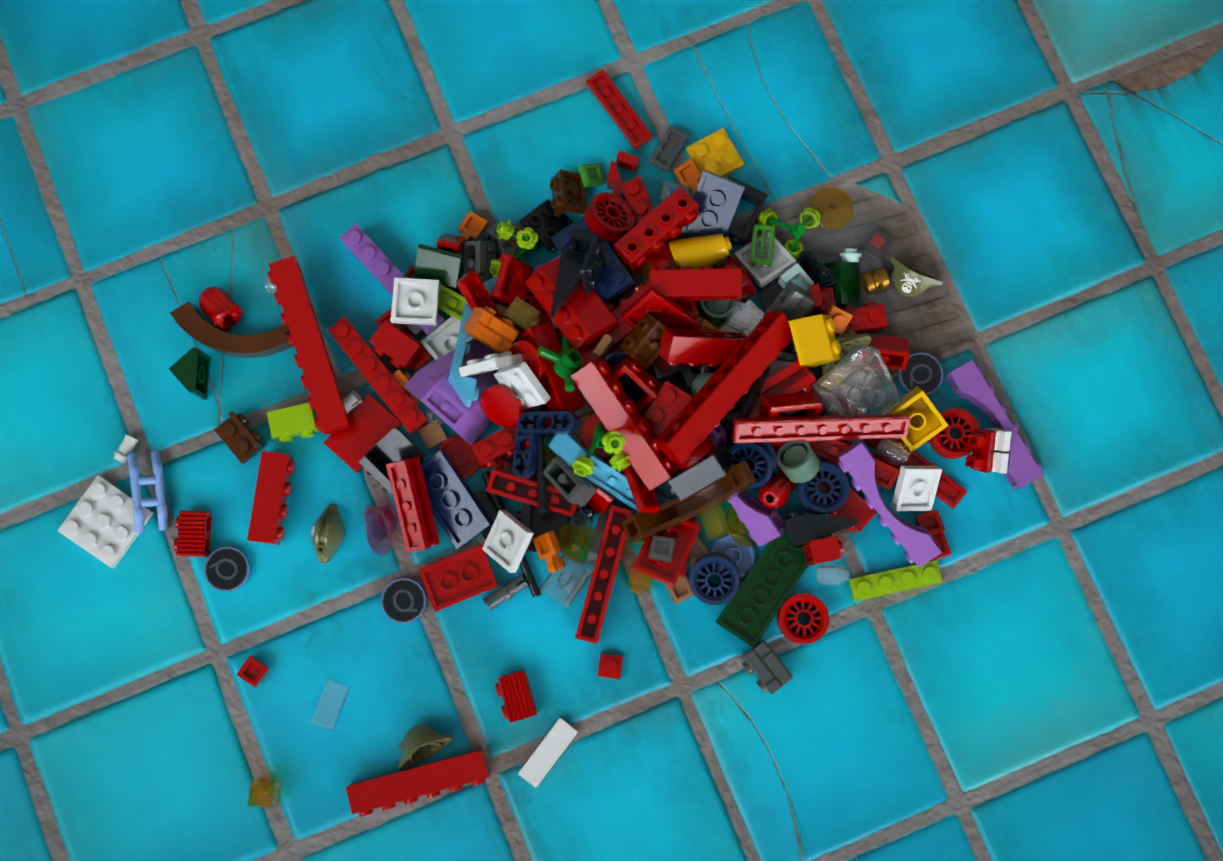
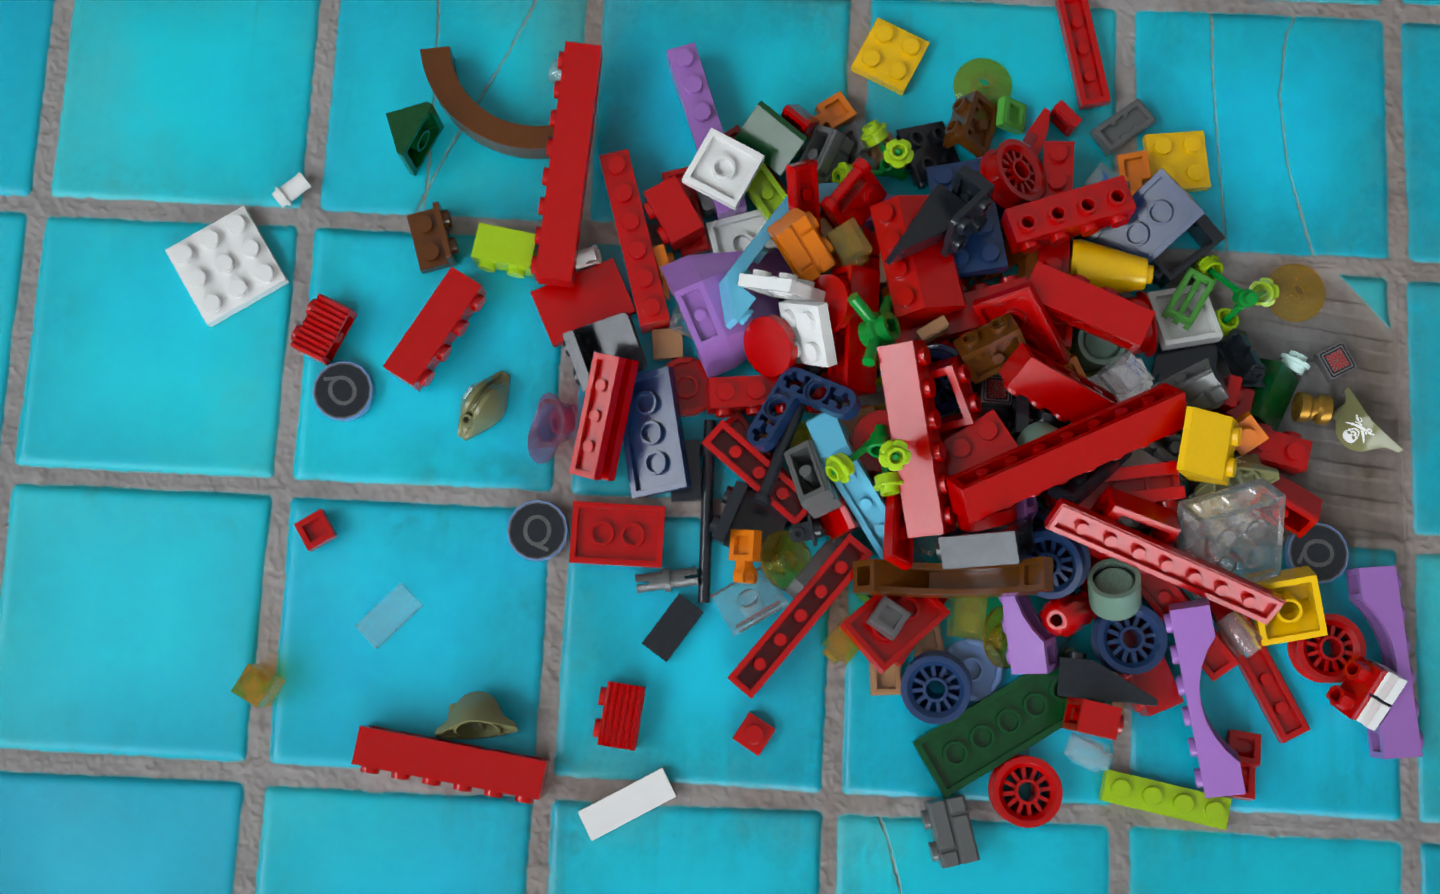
camera: 25 degrees right, 0 degrees up
(138, 502) = (275, 258): light blue piece -> none
(220, 308) = (483, 72): red piece -> none
(492, 171) = (889, 56): none -> yellow plate
(507, 541) = (699, 517): white plate -> none
(524, 622) = (672, 628): none -> black tile
(562, 150) = (970, 73): none -> dish
(797, 276) = (1218, 354): light aqua panel -> none
(916, 488) = (1248, 695): white plate -> none

